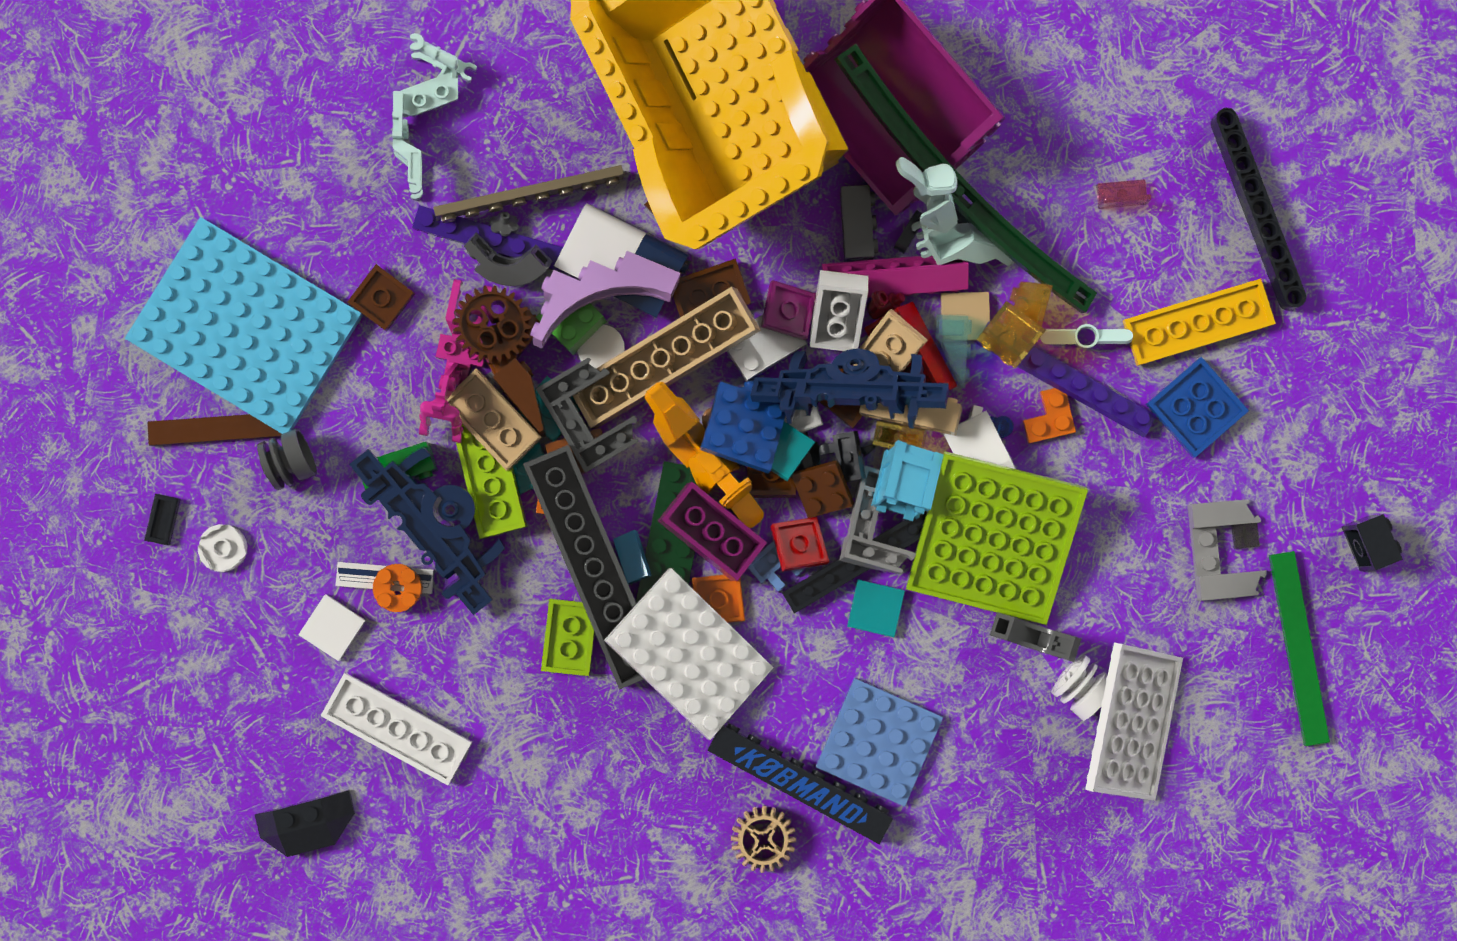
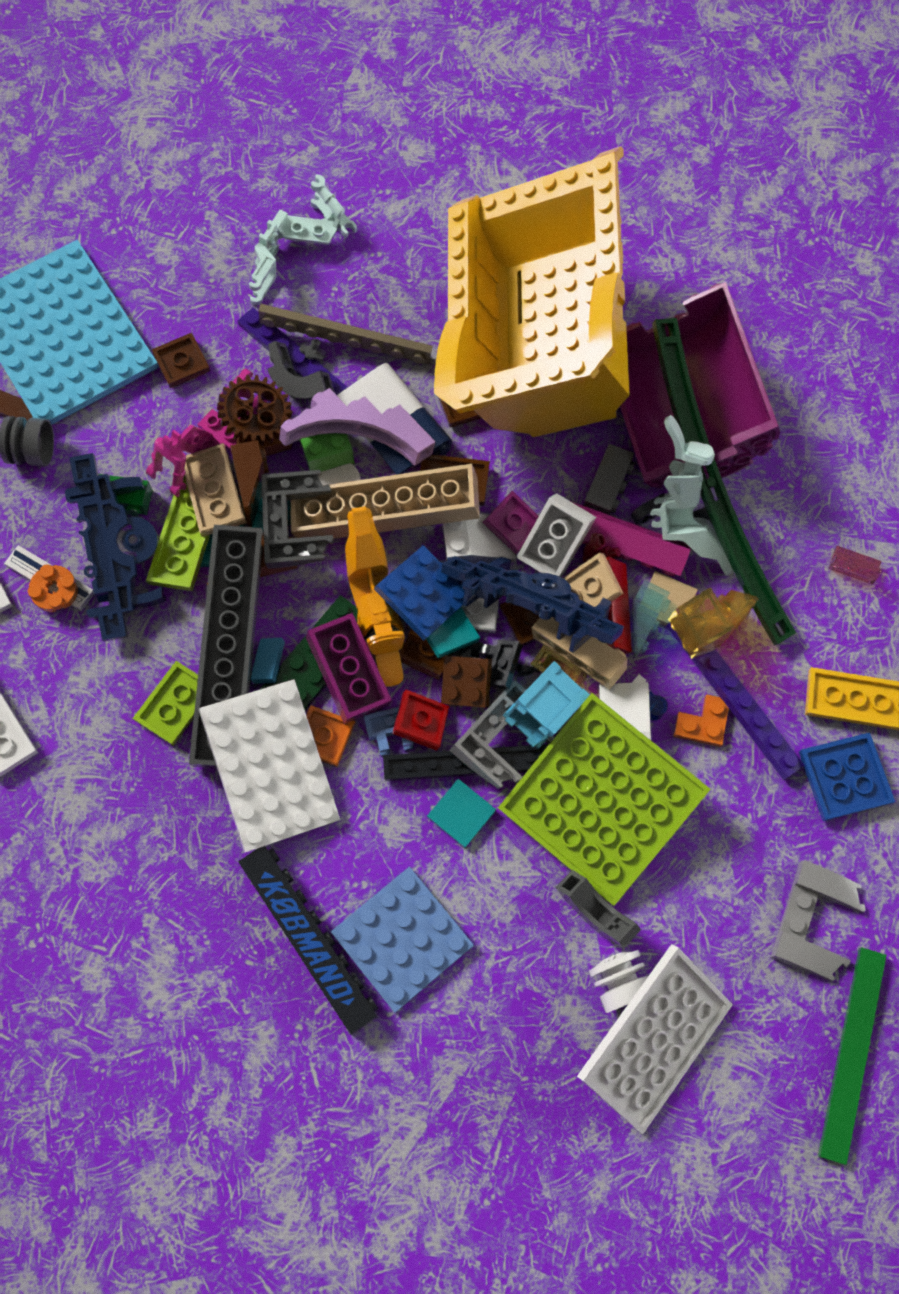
camera: 25 degrees right, 15 degrees down
(780, 851) = (233, 979): tan gear -> none
(1102, 336) = (755, 659): light aqua piece -> none
(1245, 535) = (843, 918): clear smoke tile -> none

